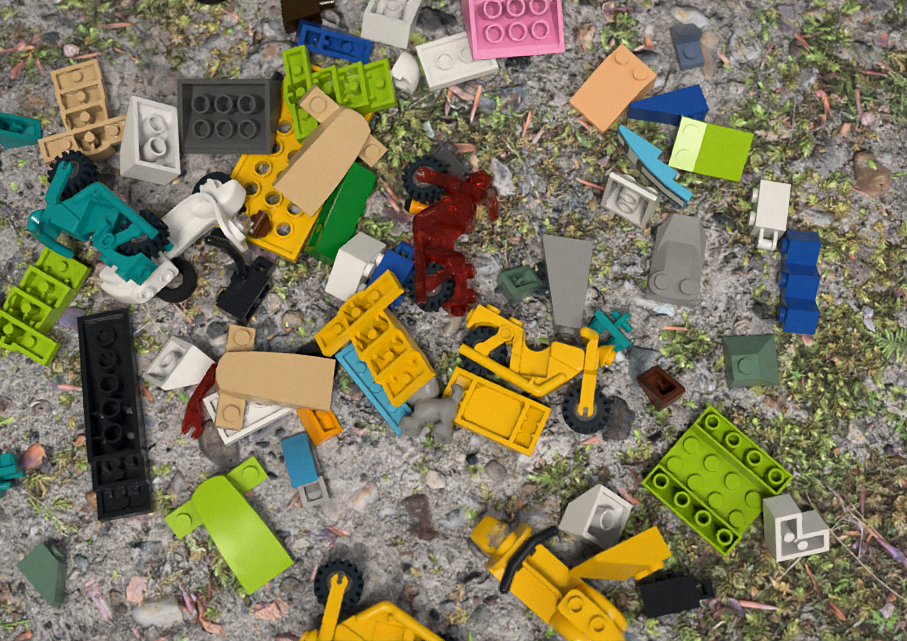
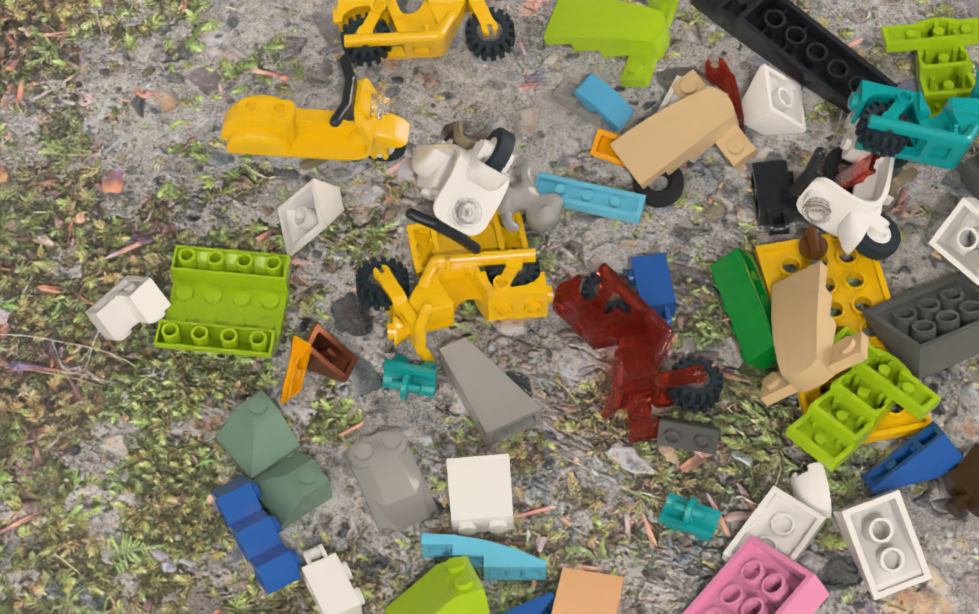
camera: 145 degrees right, 15 degrees down
(192, 243) = (857, 172): none -> clear red arm
(354, 265) = (694, 272): white brick -> none
(379, 339) = (613, 218): yellow slope -> none
(471, 461) = (463, 181): none -> white piece
(501, 101) = (689, 517): none -> teal hips
(518, 283) = (531, 359): sand green slope -> none
(631, 558) = (264, 185): yellow slope -> none
(671, 595) = (203, 203): black brick -> none
(698, 383) = (295, 369): none -> light orange slope
(749, 306) = (293, 488): none -> sand green slope

